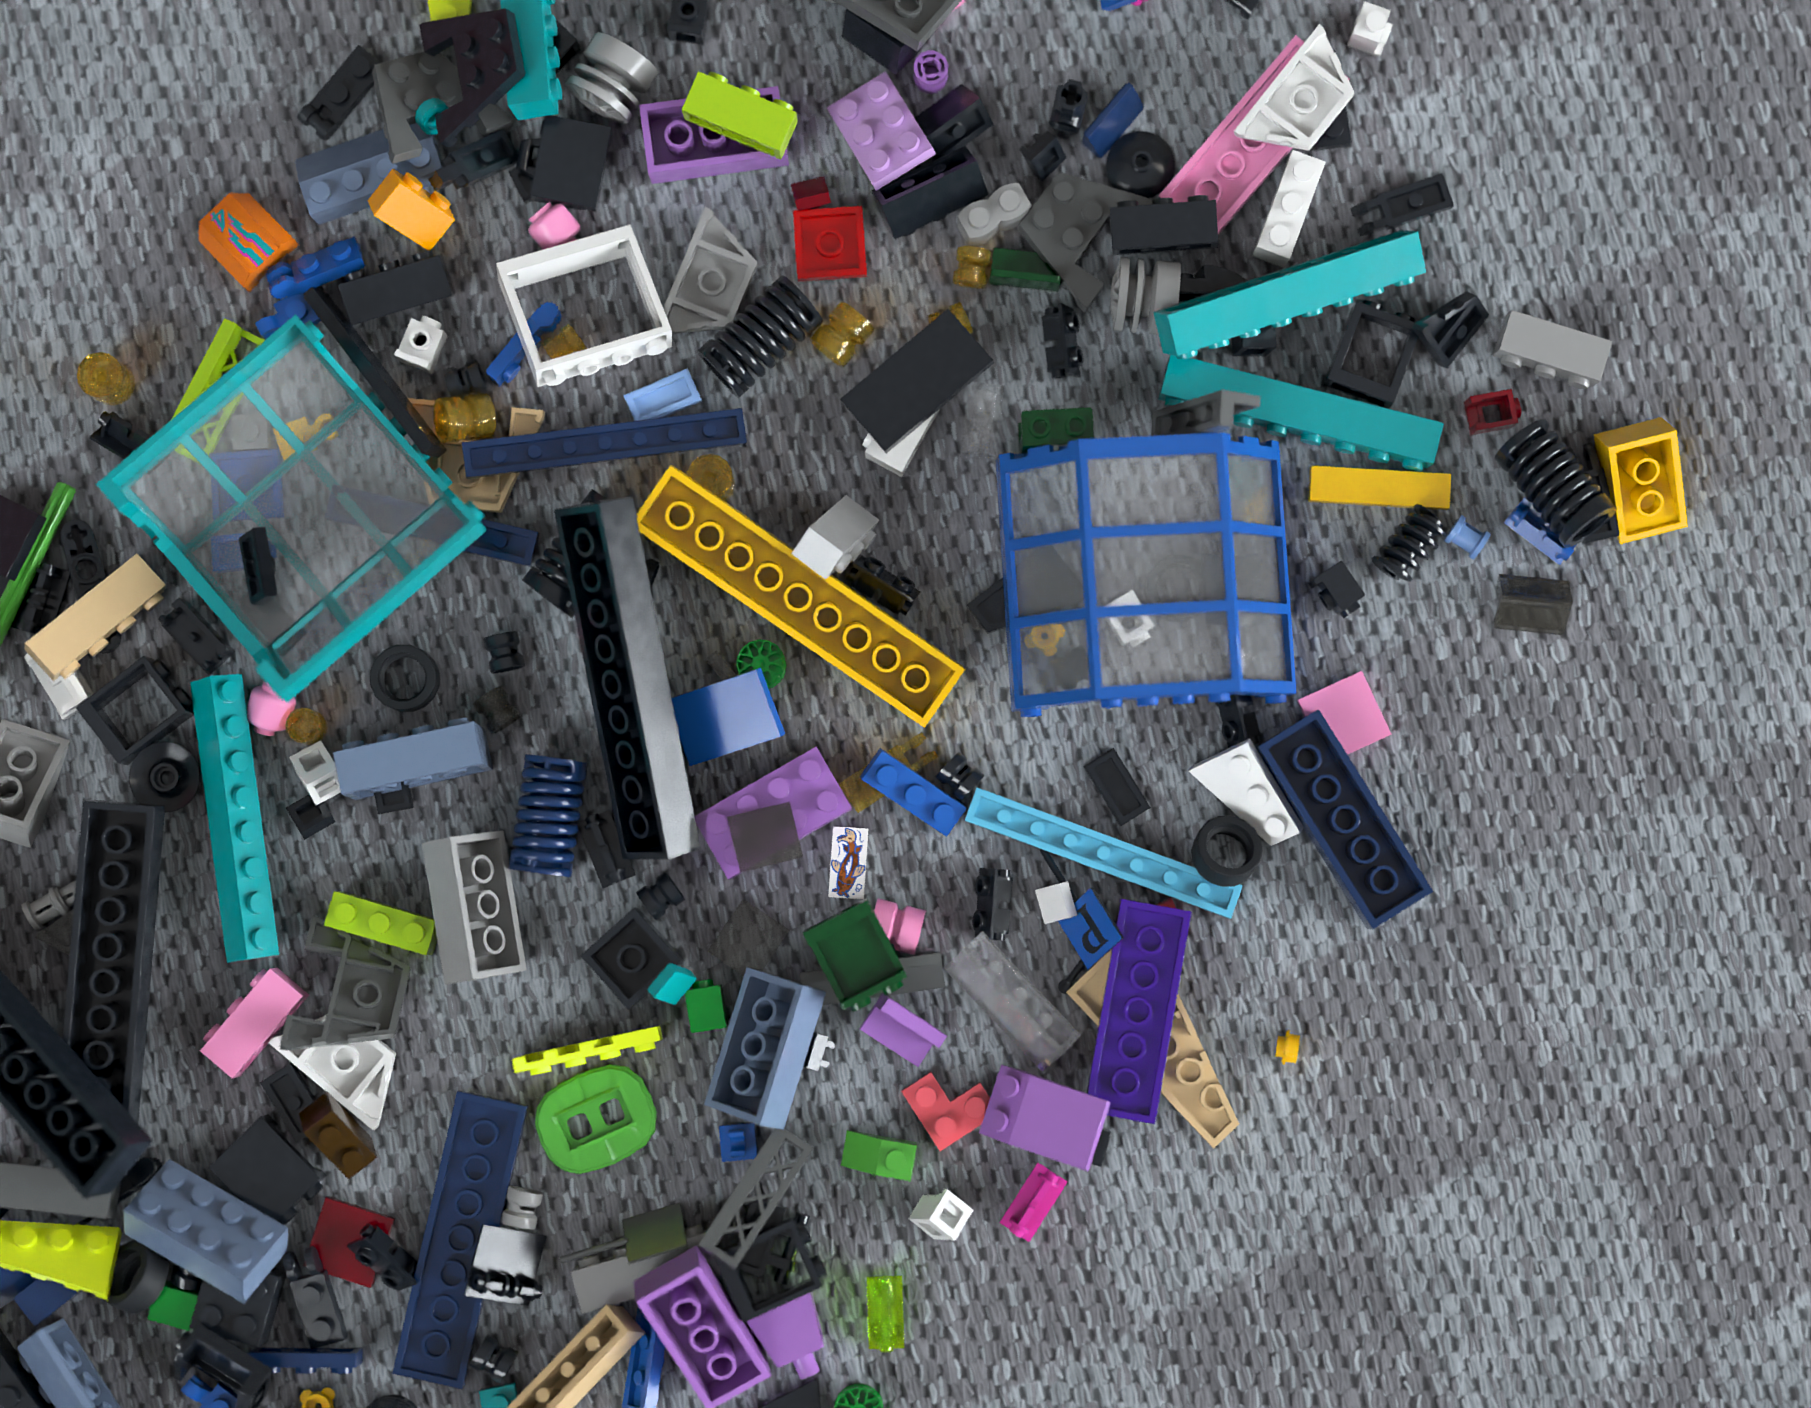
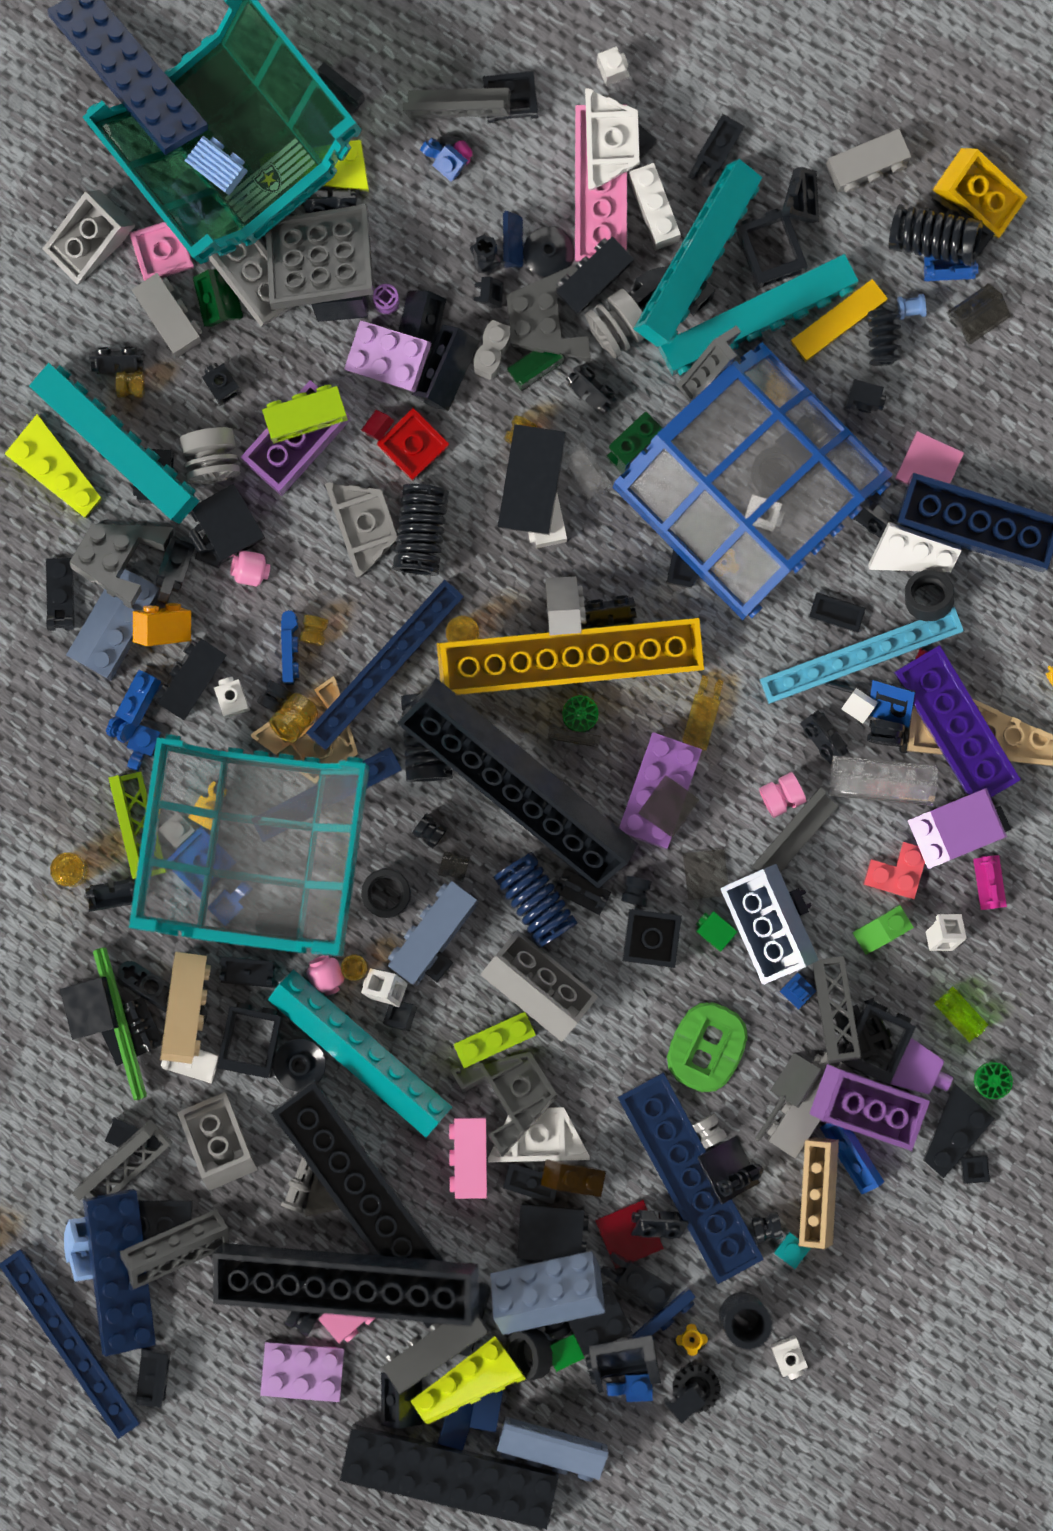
camera: 40 degrees left, 0 degrees up
(244, 238) = (76, 724): orange slope -> none
(258, 566) = (253, 898): black plate -> none
(374, 373) = (220, 736): black tile -> none
(426, 114) = (128, 562): teal tile -> none
(486, 61) = (135, 505): black wing -> none
(574, 257) = (276, 574): white window -> none
(575, 1054) = (665, 1019): neon yellow wing -> none
(663, 397) = (393, 611): light blue tile -> none
(672, 983) = (687, 932): teal tile -> none
(726, 717) = (588, 757): tile -> none
(841, 335) = (465, 489): clear yellow wheel -> none
(848, 862) = (724, 783): tile -> none
(856, 955) = (776, 828): dark green panel -> none
(901, 1030) = (835, 850): medium lavender panel -> none
(913, 792) = (727, 712): blue plate -> none
(961, 784) = (745, 681): black wheel -> none
(971, 267) = (504, 390): clear yellow wheel -> none
(1061, 952) = (888, 730): none -> black wheel
(1508, 409) = (874, 216): dark red window -> none

